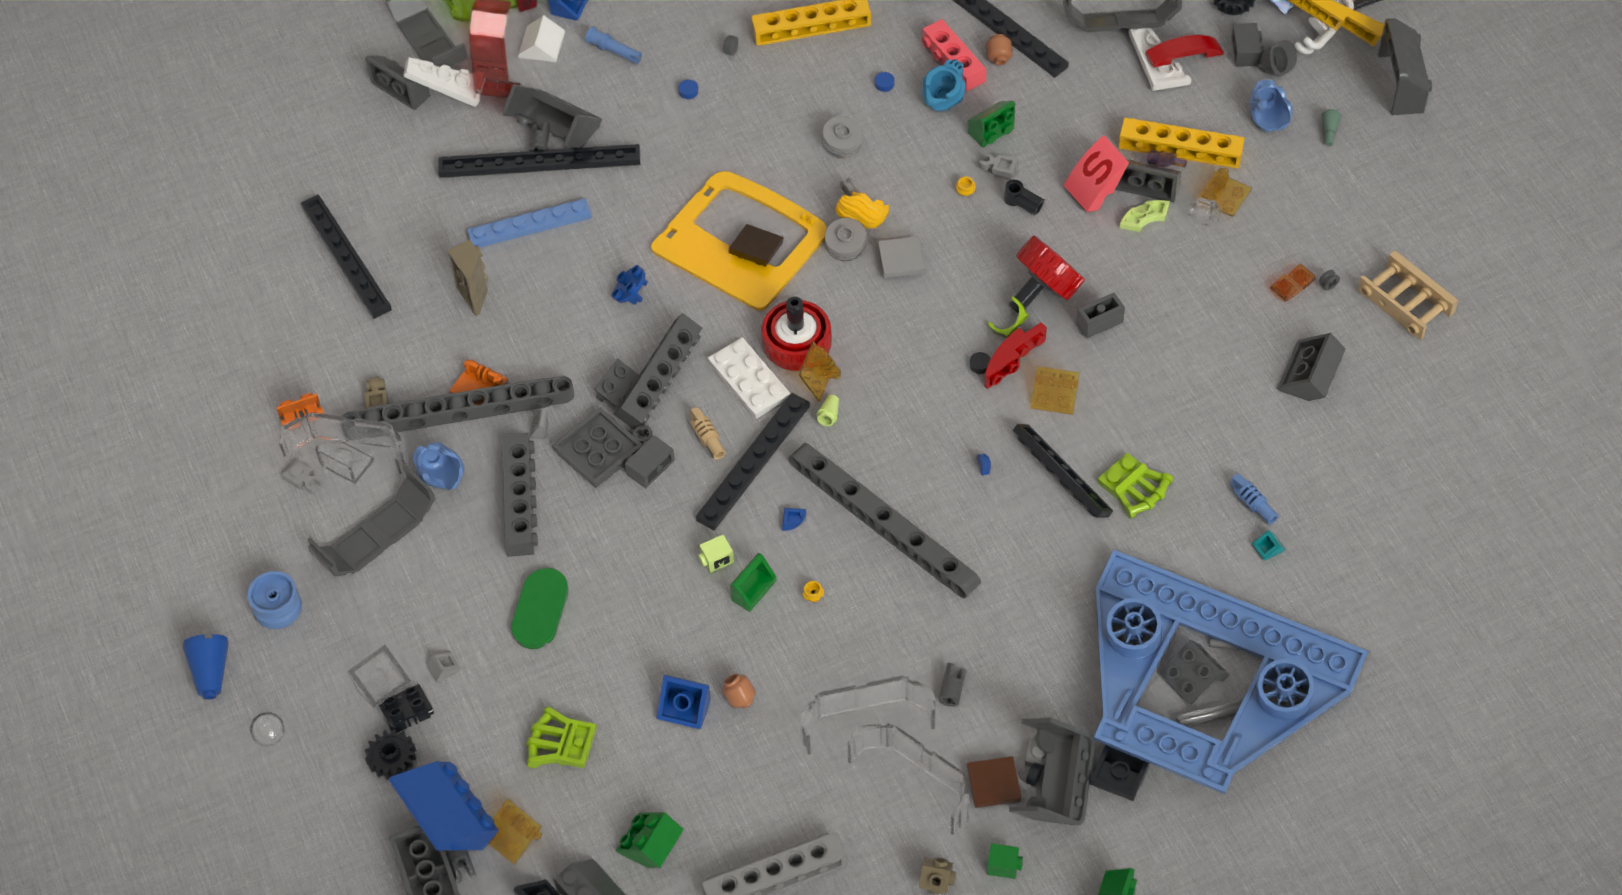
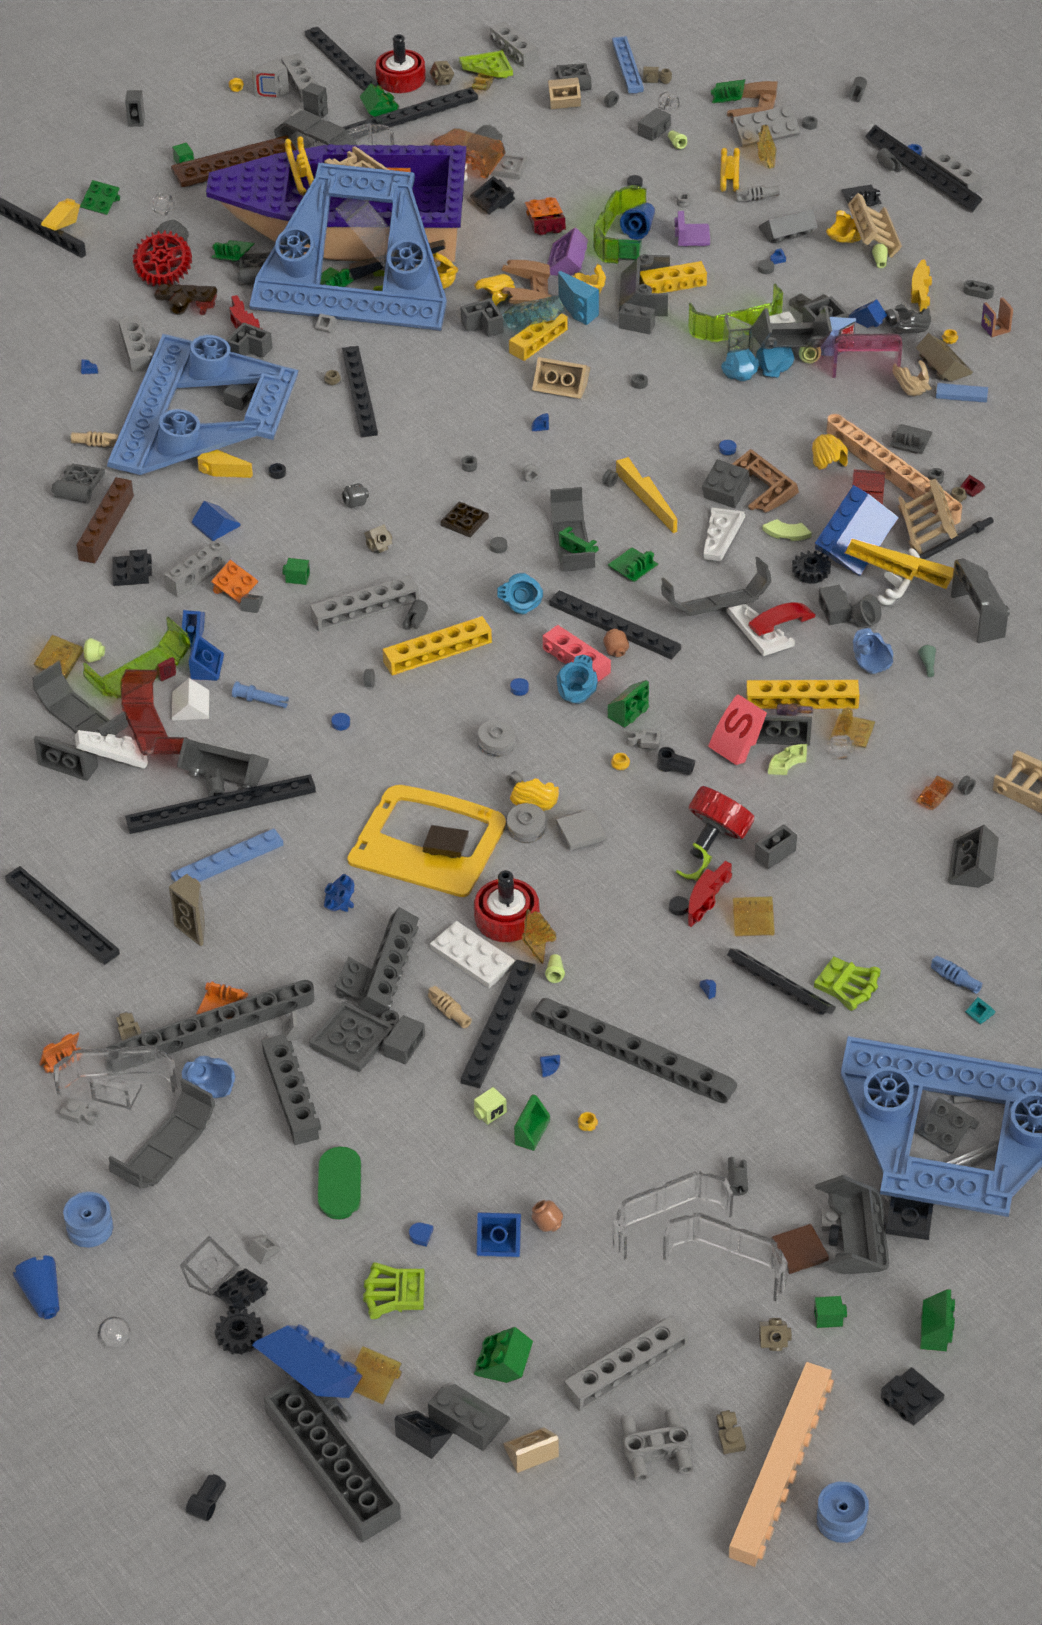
camera: 15 degrees left, 10 degrees down
(606, 682) = (420, 1233): none -> blue tile

